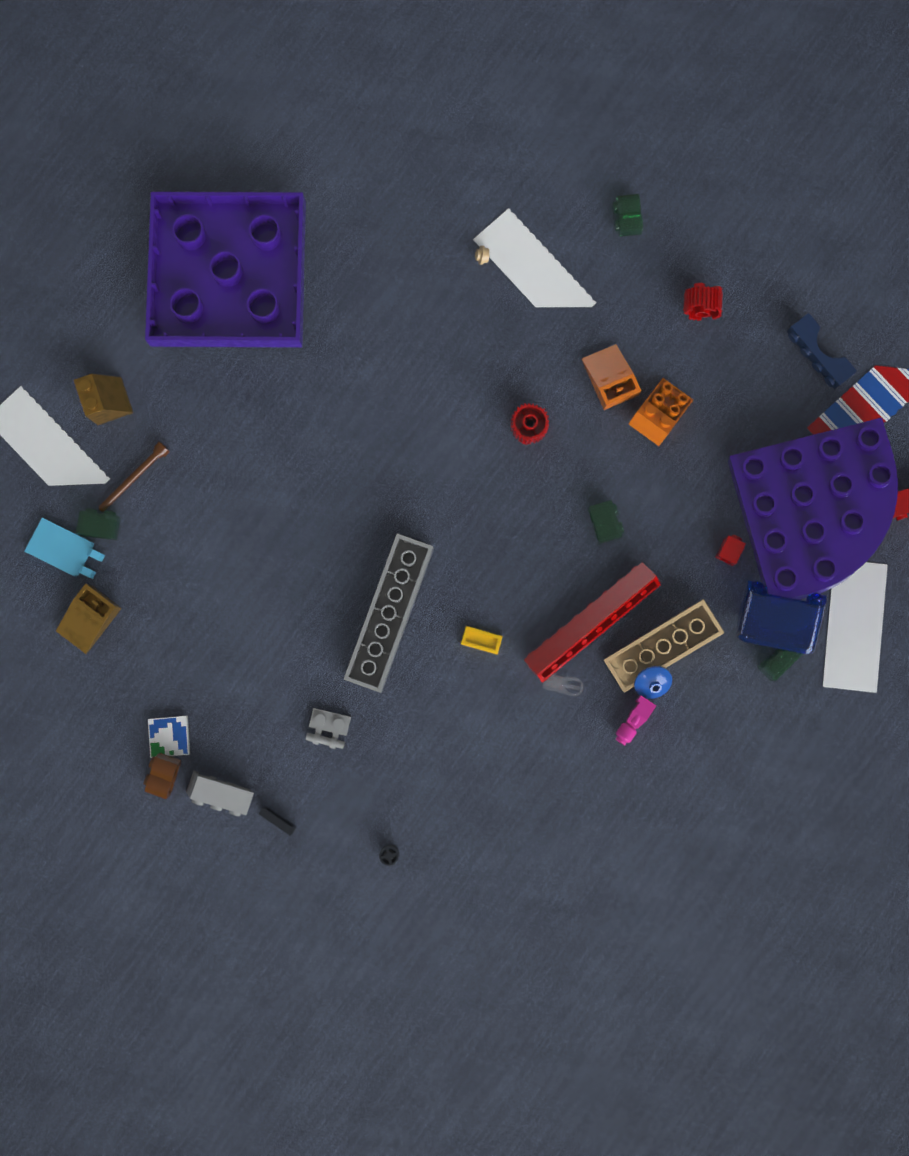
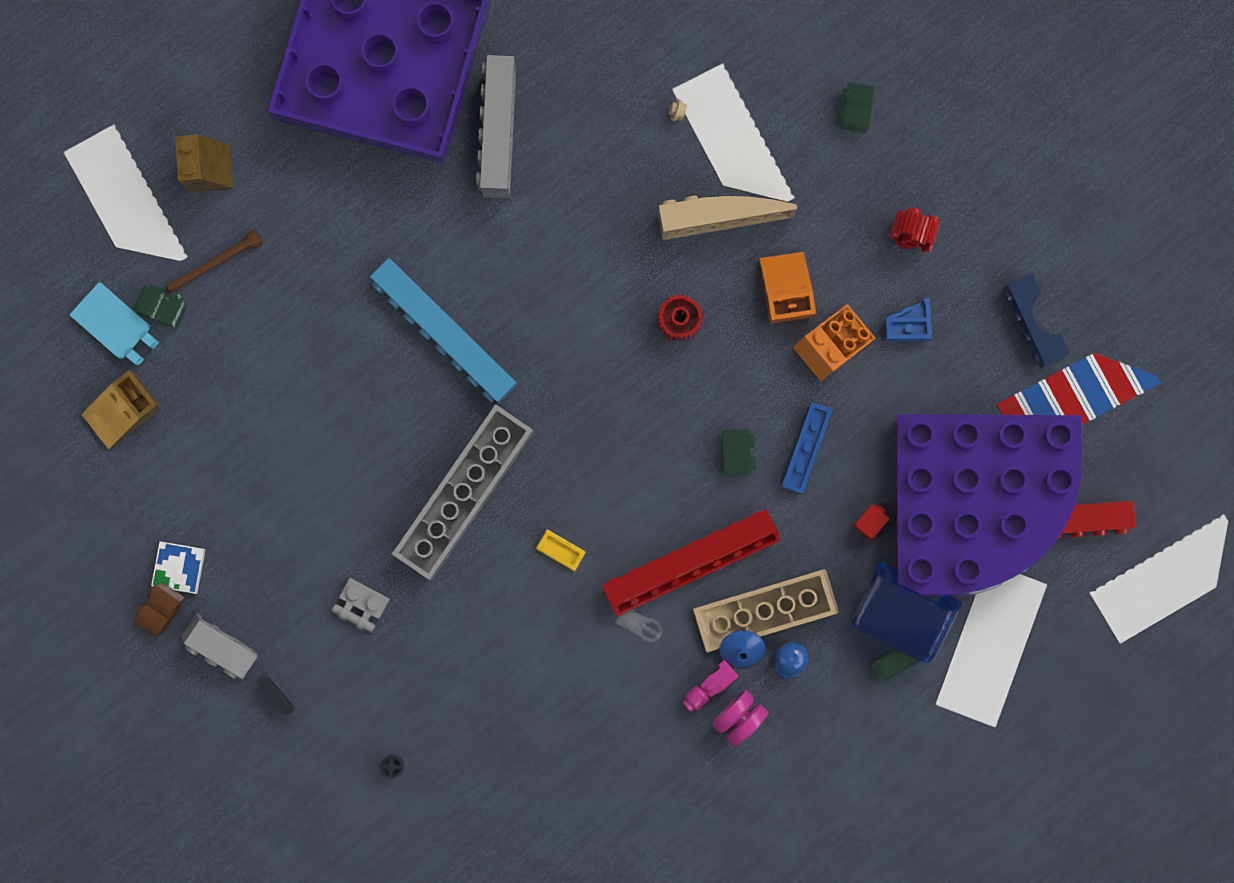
camera: 10 degrees right, 0 degrees up
(337, 484) = (443, 330): none -> dark azure brick
(338, 305) = (497, 129): none -> light grey brick
(539, 329) = (718, 213): none -> tan slope
(661, 503) = (807, 448): none -> blue plate
(667, 740) = (743, 721): none -> dark pink wheel
(696, 680) = (791, 659): none -> blue helmet
(720, 380) = (910, 324): none -> blue wing

